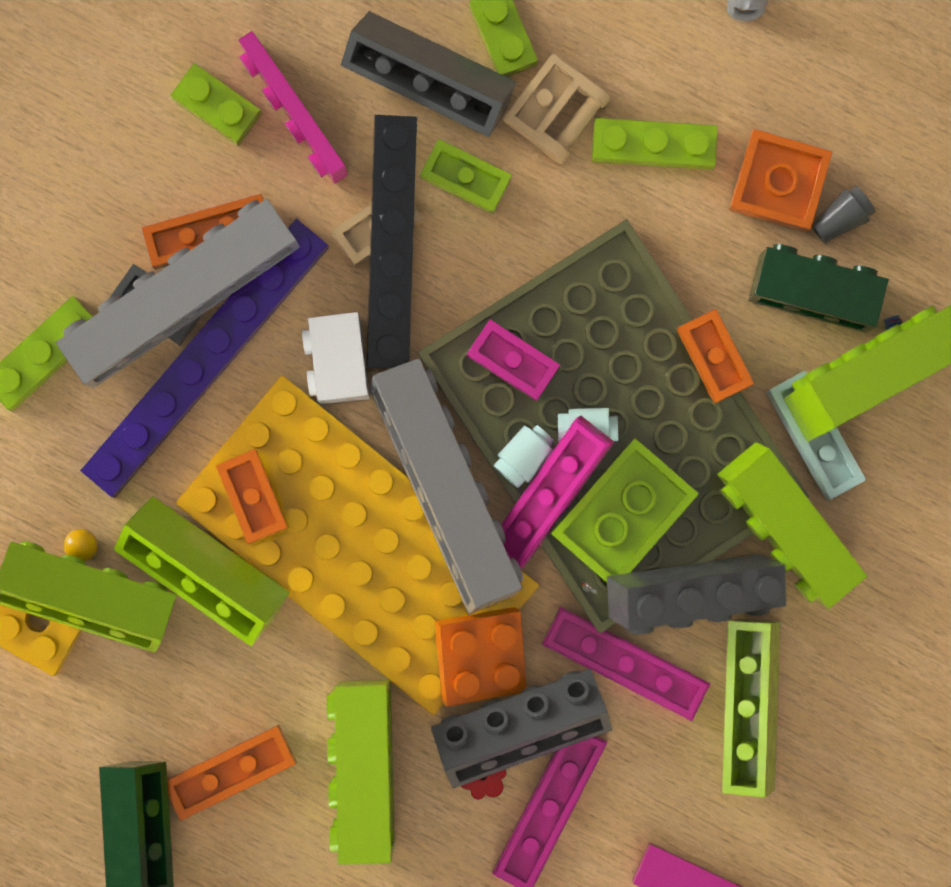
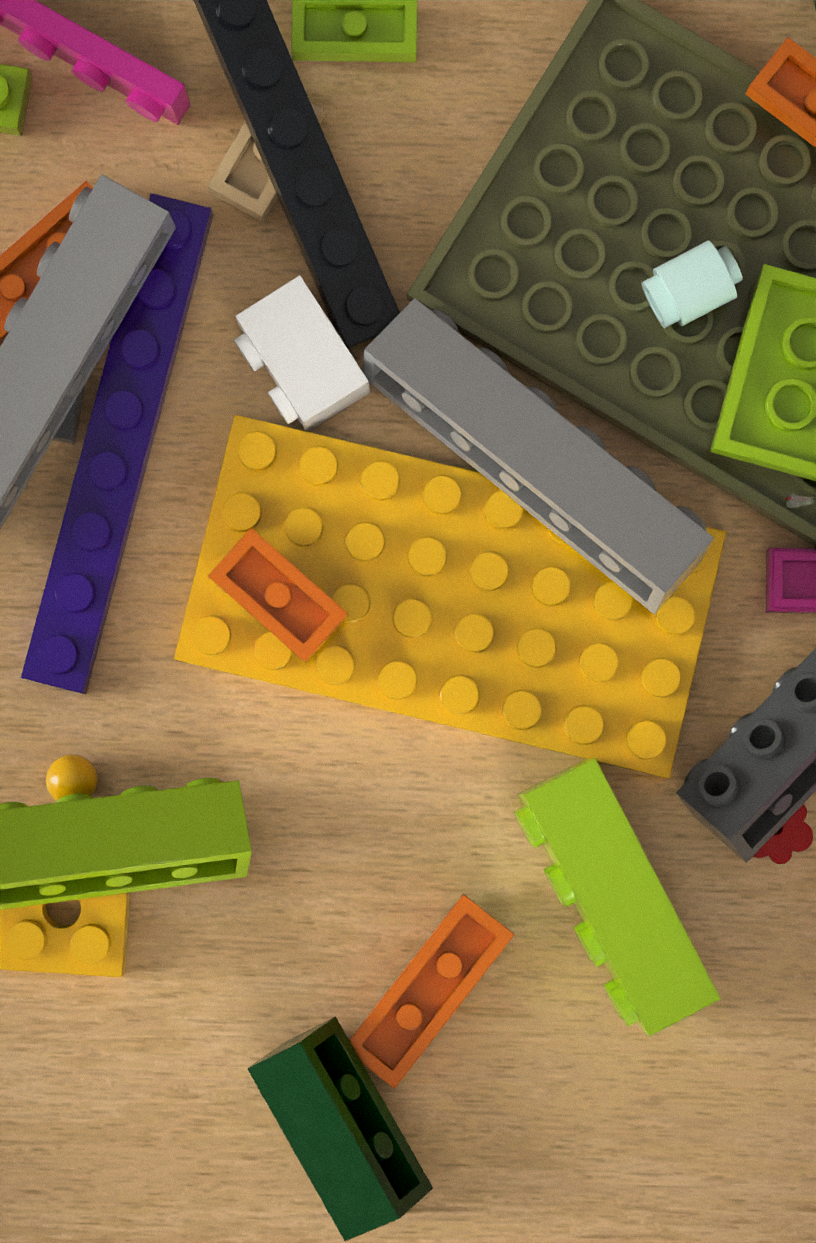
camera: 20 degrees left, 0 degrees up
(201, 570) = (256, 732): lime brick -> none
(480, 656) = (696, 664): orange plate -> none
(513, 360) = (545, 239): dark pink plate -> none
(524, 455) = (625, 360): light aqua brick -> none
(553, 489) = (688, 381): dark pink tile -> none

